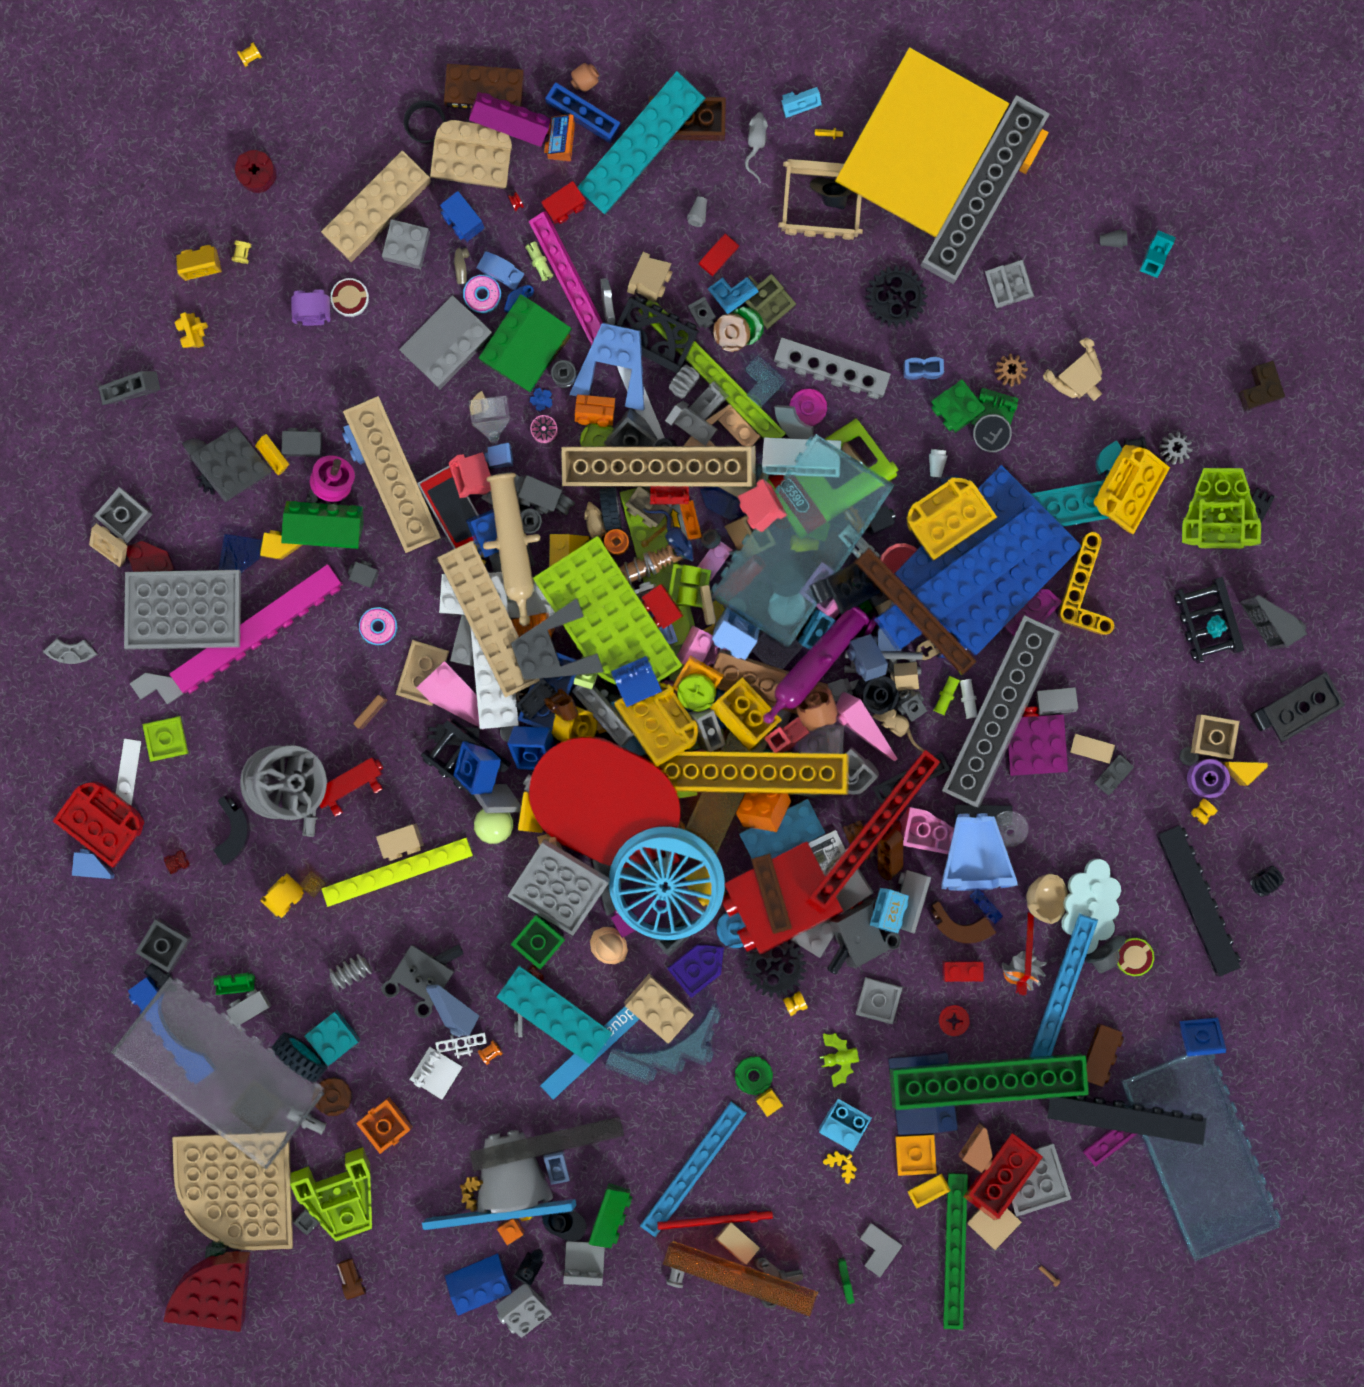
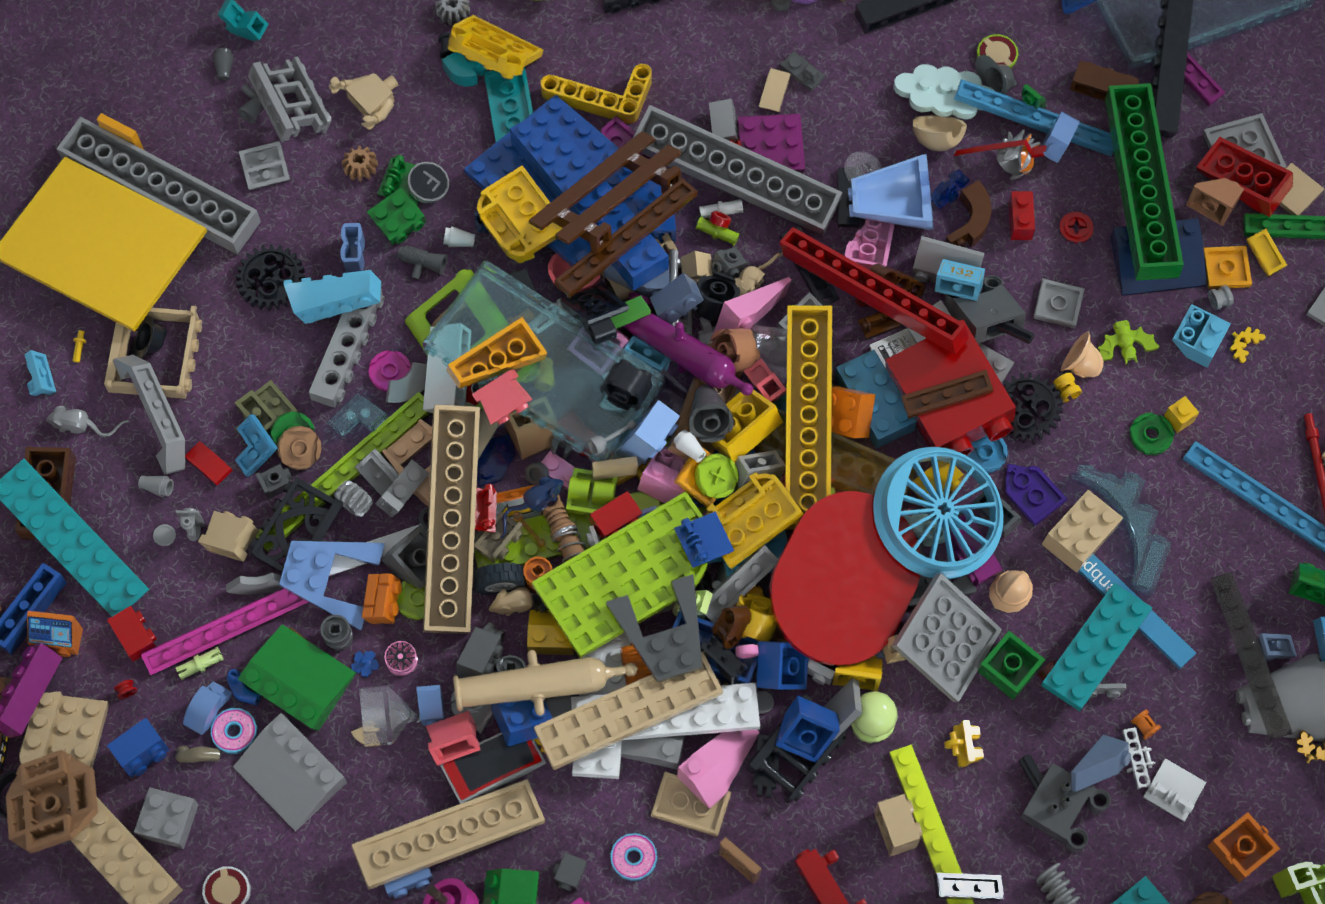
camera: 90 degrees left, 20 degrees down
(351, 898) = (968, 886): none -> tile
(413, 134) = (50, 801): none -> medium nougat piece
(472, 897) = (962, 744): none -> yellow hips
(542, 718) = (747, 651): none -> bright pink tile
(654, 222) = (164, 535): none -> light grey piece
(658, 244) = (192, 522): none -> light grey hinge
(719, 668) = (689, 445): none -> white cone
(722, 590) = (598, 443): none -> light grey hinge
(748, 685) = (709, 415): none -> dark grey cone
(765, 205) = (172, 454): none -> light grey slope
(771, 613) = (626, 385): none -> black brick
(797, 499) = (504, 351): none -> light orange wedge
(822, 1018) = (1083, 358): none -> light nougat piece
(854, 619) = (637, 310): none -> bright green tile
(870, 354) = (333, 295): none -> medium azure wedge
(883, 1146) = (1220, 297): none -> light grey wheel
(915, 430) = (421, 259): none -> dark grey piece
(954, 697) = (720, 219): none -> red tile
(1004, 610) = (626, 156): none -> reddish brown fence
(1040, 1008) = (1060, 136): none -> medium blue slope
(1067, 289) = (276, 105): none -> light grey fence
(1076, 274) = (252, 108): none -> dark grey piece
(1081, 986) = (1032, 97): none -> green slope

